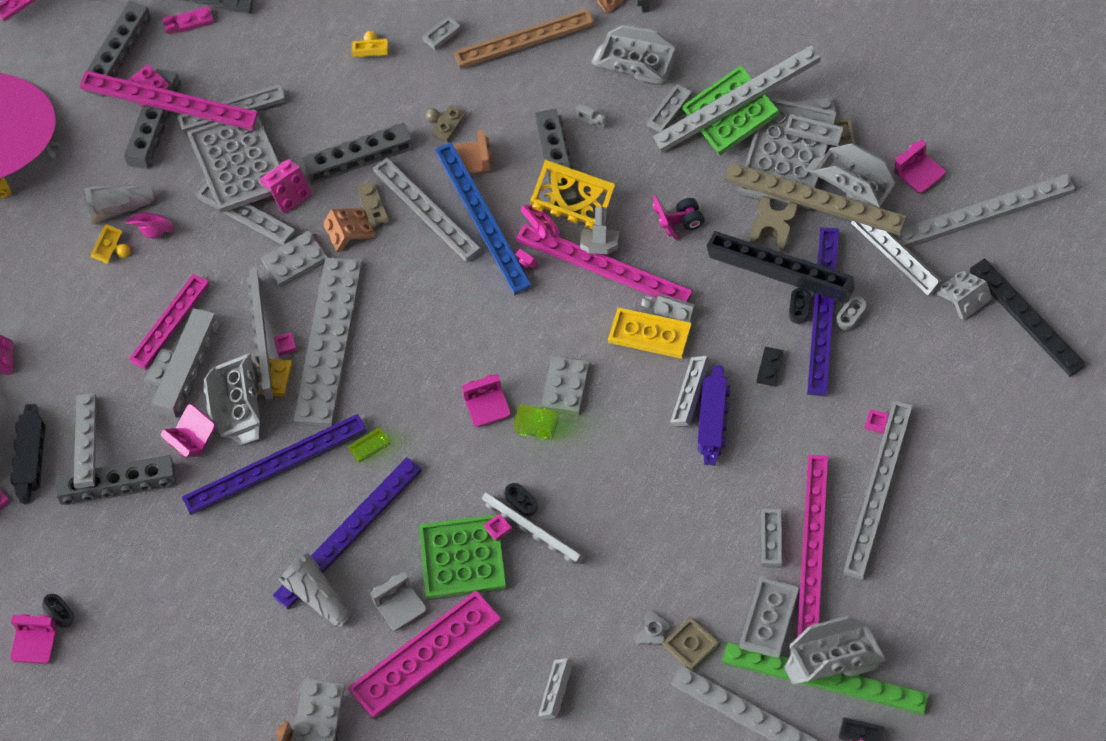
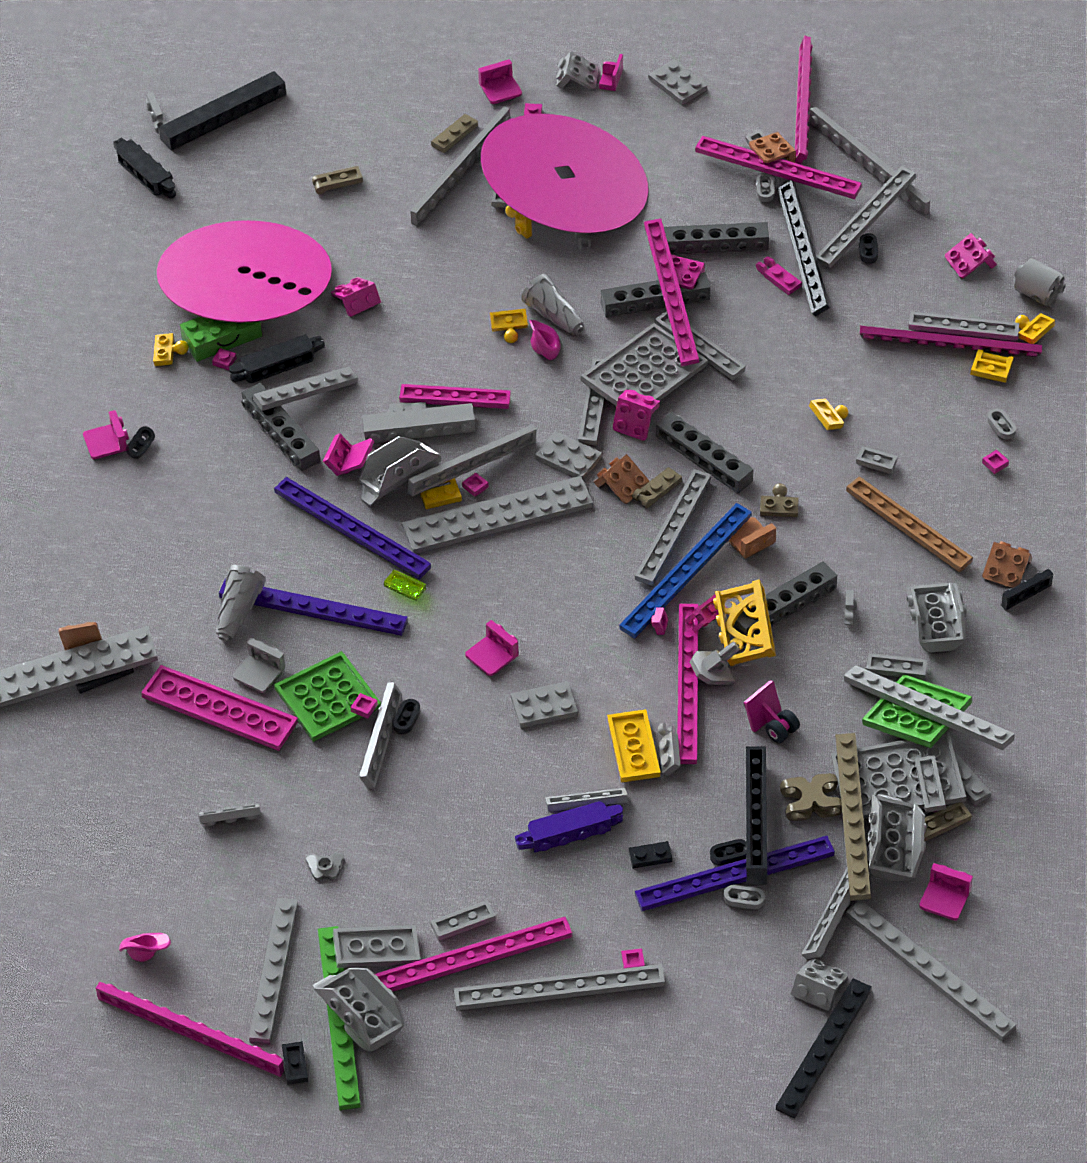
camera: 60 degrees right, 10 degrees down
(535, 422) = (488, 693): clear neon green brick -> none
(690, 644) = (324, 900): dark tan tile -> none

